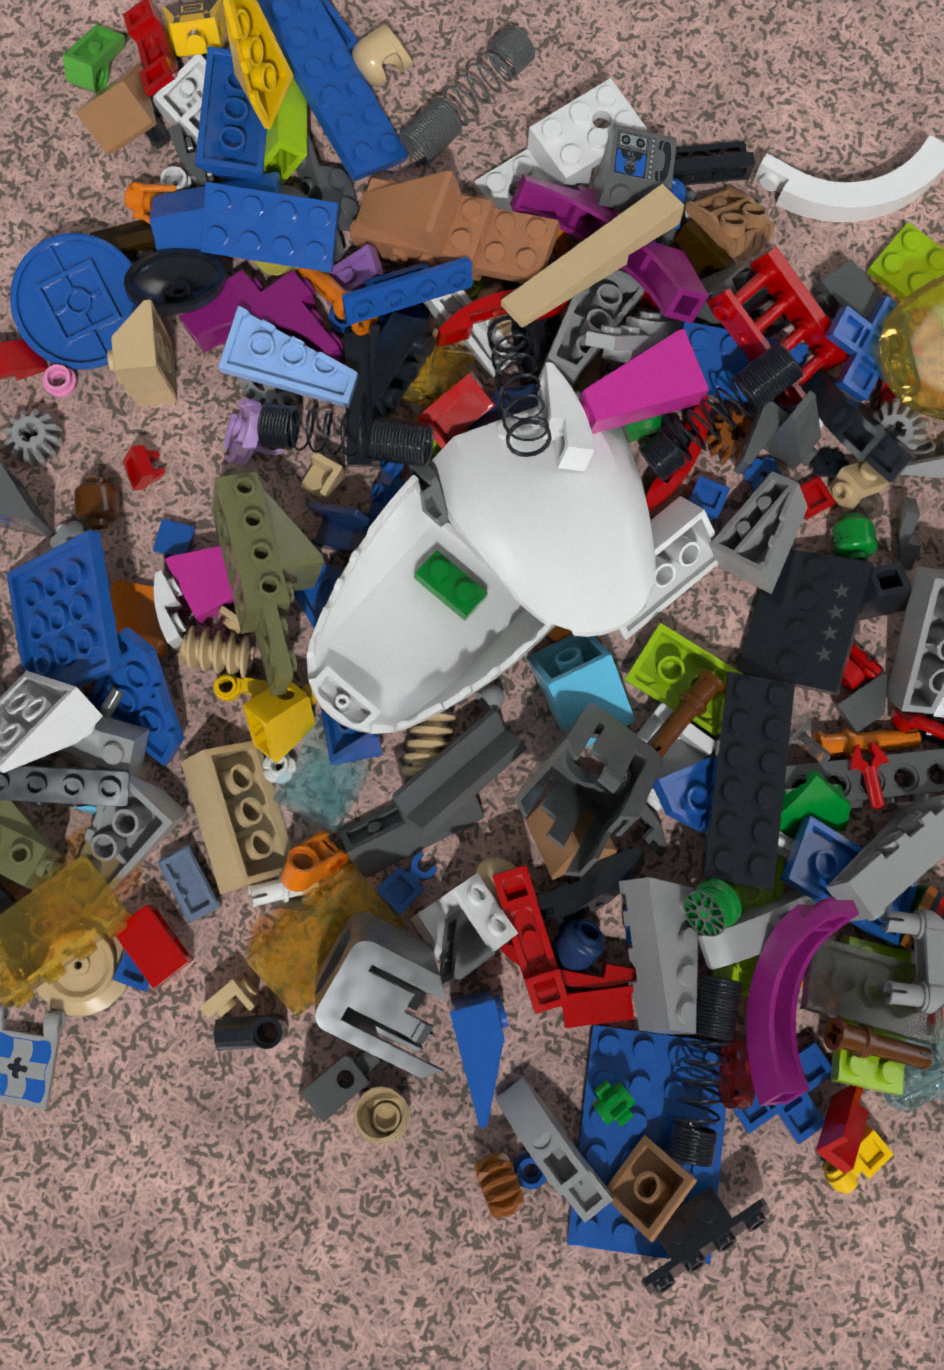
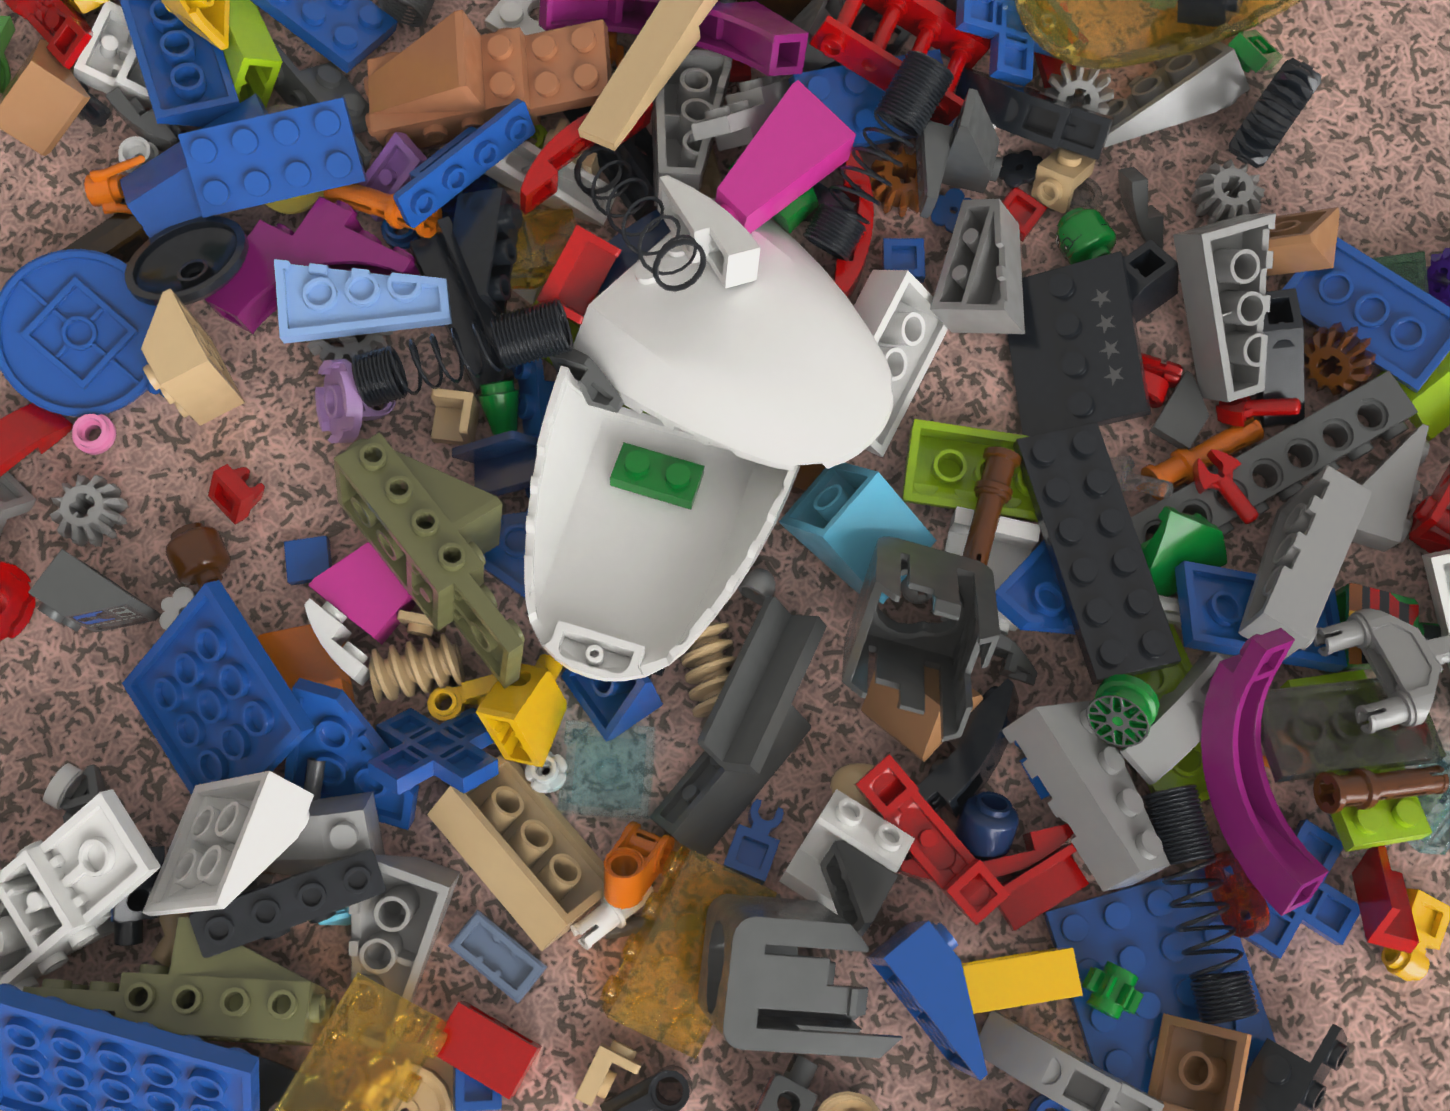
camera: 20 degrees left, 5 degrees down
(203, 718) = (433, 749): none -> blue plate
(359, 485) = (500, 405): none -> green cone
(547, 1064) = (1022, 979): none -> yellow window

